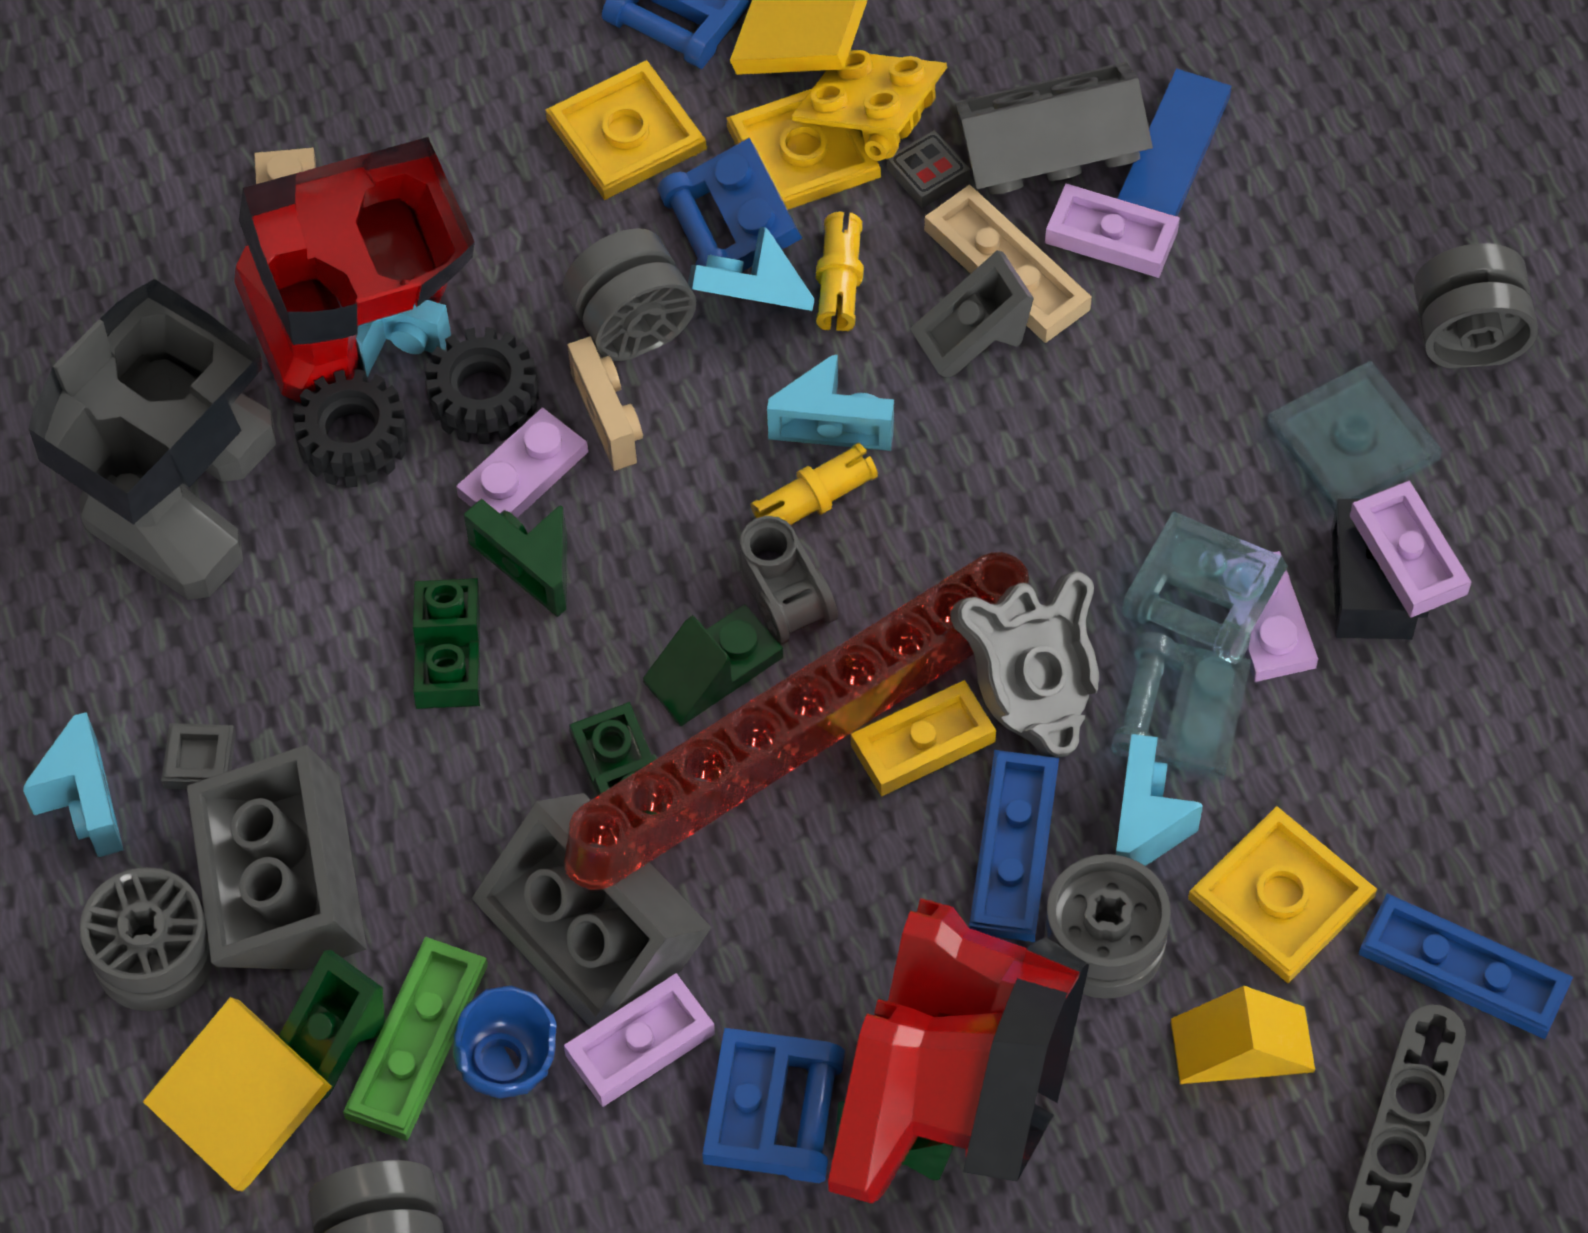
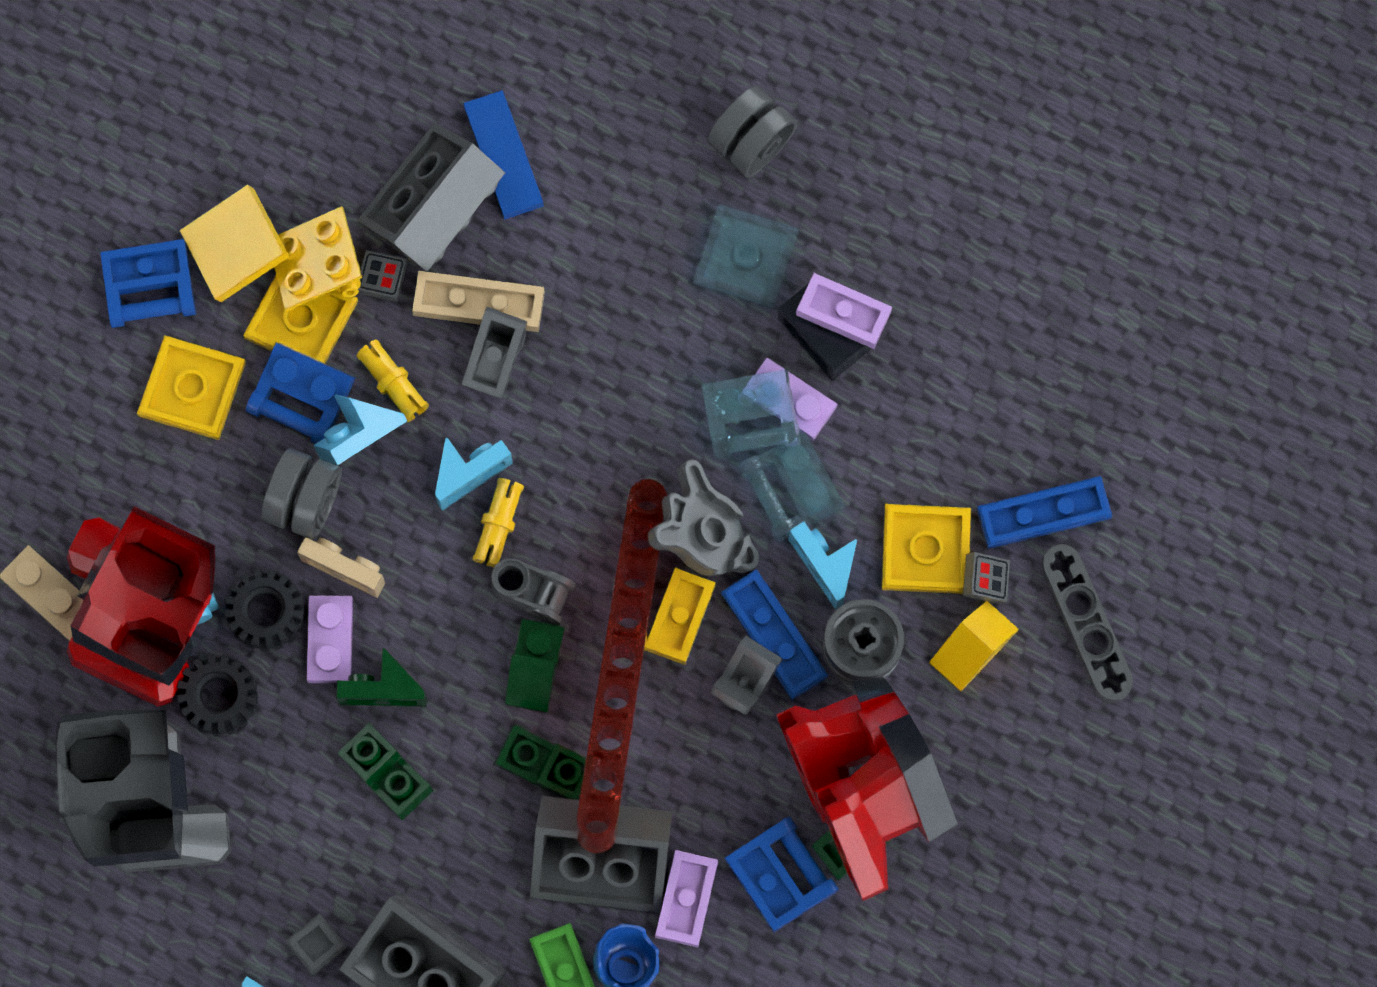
camera: 45 degrees left, 15 degrees up
(938, 856) = (746, 676): none -> dark grey bracket
(1112, 230) = (517, 235): lavender plate -> none
(1325, 977) = (986, 578): none -> dark grey tile

